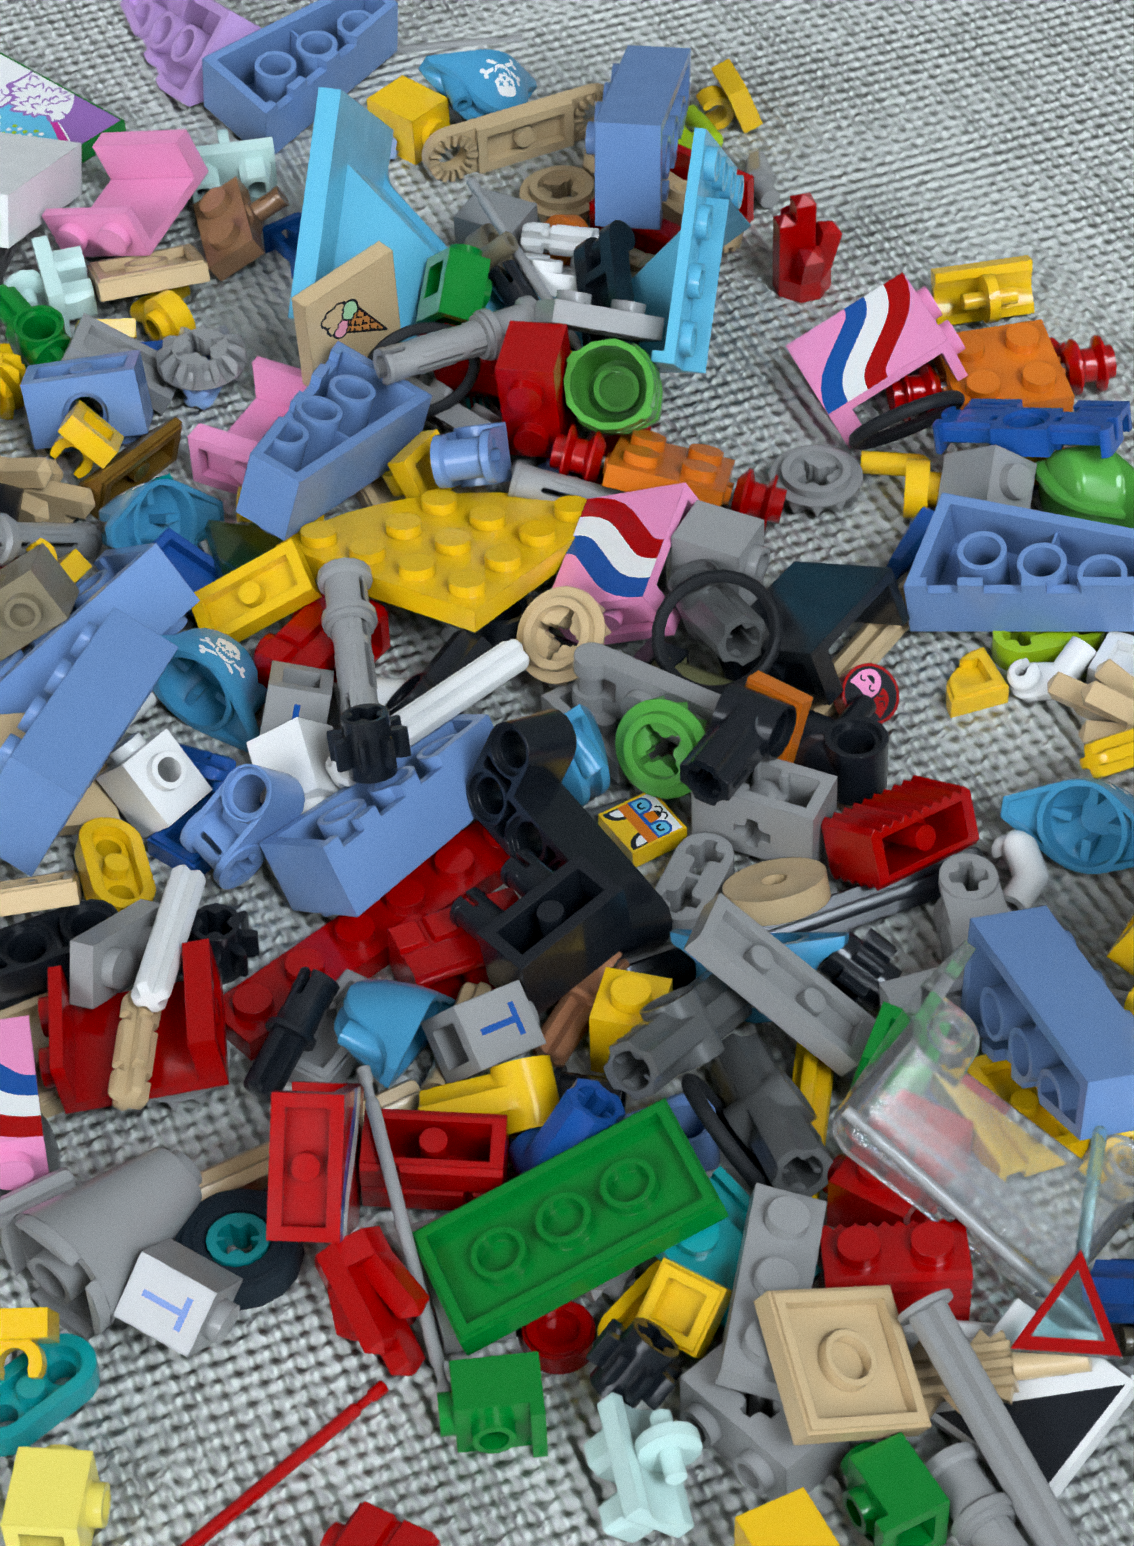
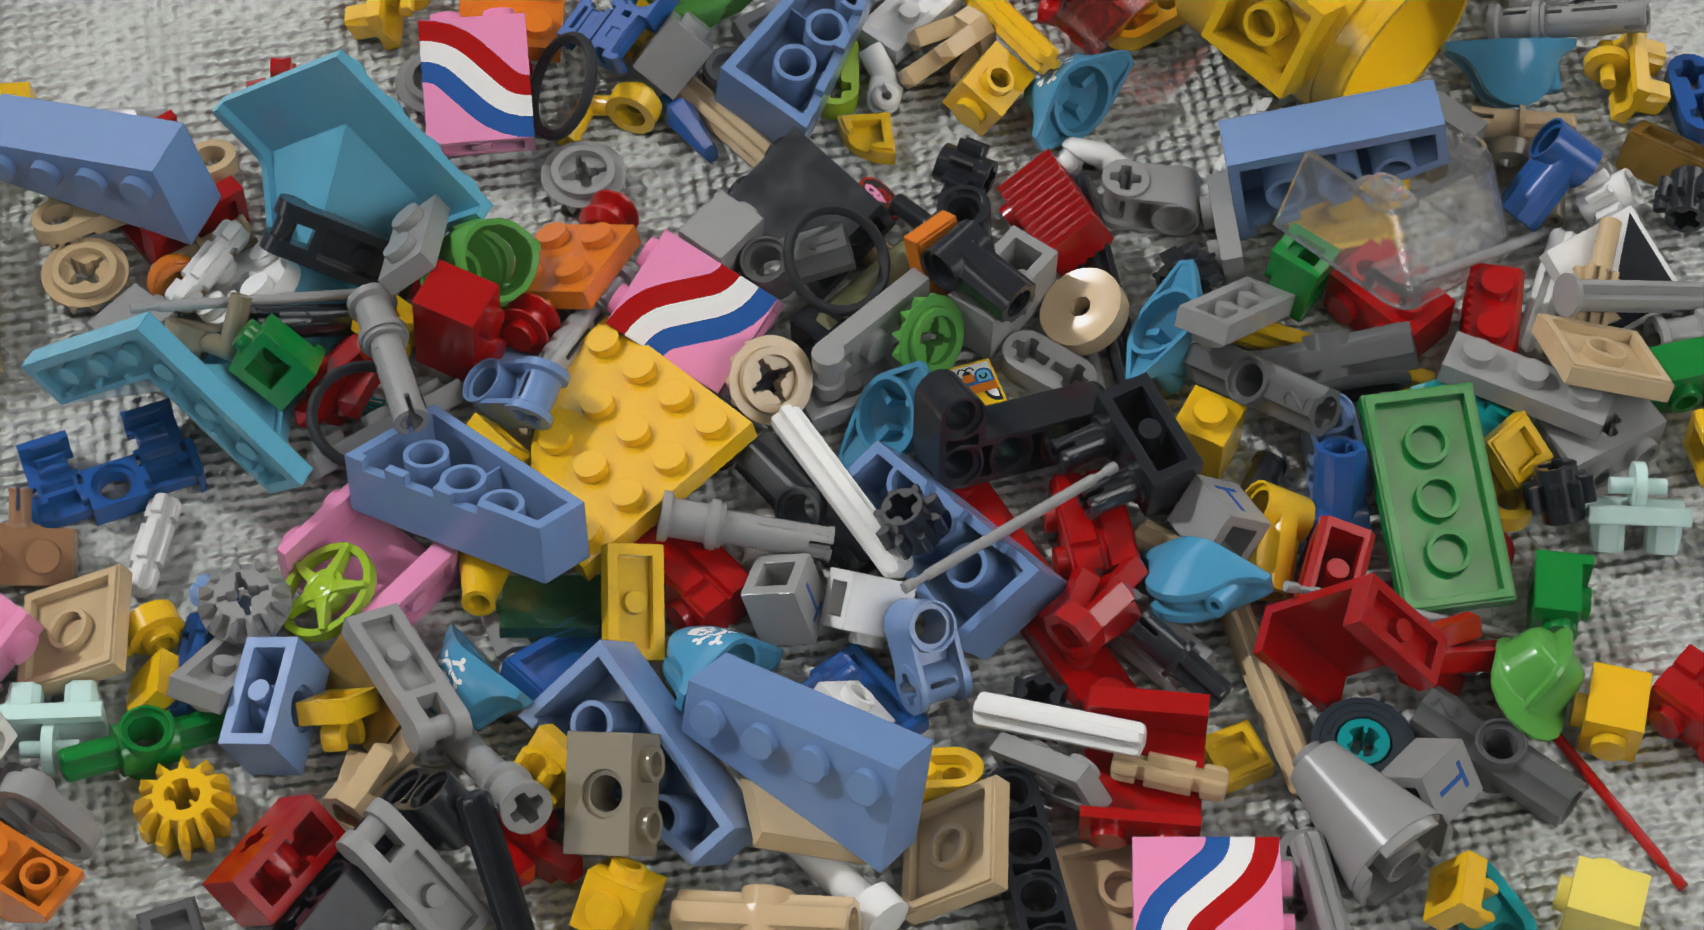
camera: 80 degrees left, 10 degrees up
(117, 455) = (407, 677): none -> light grey plate
(207, 1132) = (1240, 753): none -> yellow tile
(229, 1402) = (1525, 772): none -> dark grey piece
(230, 407) = (329, 589): none -> lime wheel
(255, 305) = (153, 543): none -> white axle
(315, 935) = (1095, 608): none -> red rock
(329, 1478) = (1611, 712): none -> yellow brick
(340, 1382) = (1536, 680): none -> bright green piece
(348, 306) = (316, 439): tan tile -> none
(381, 819) = (1009, 527): none -> light grey piece
(940, 750) = (965, 165): none -> black gear
(1055, 741) = (988, 89): none -> yellow brick
(1072, 1314) = (1587, 215): clear light blue piece -> none

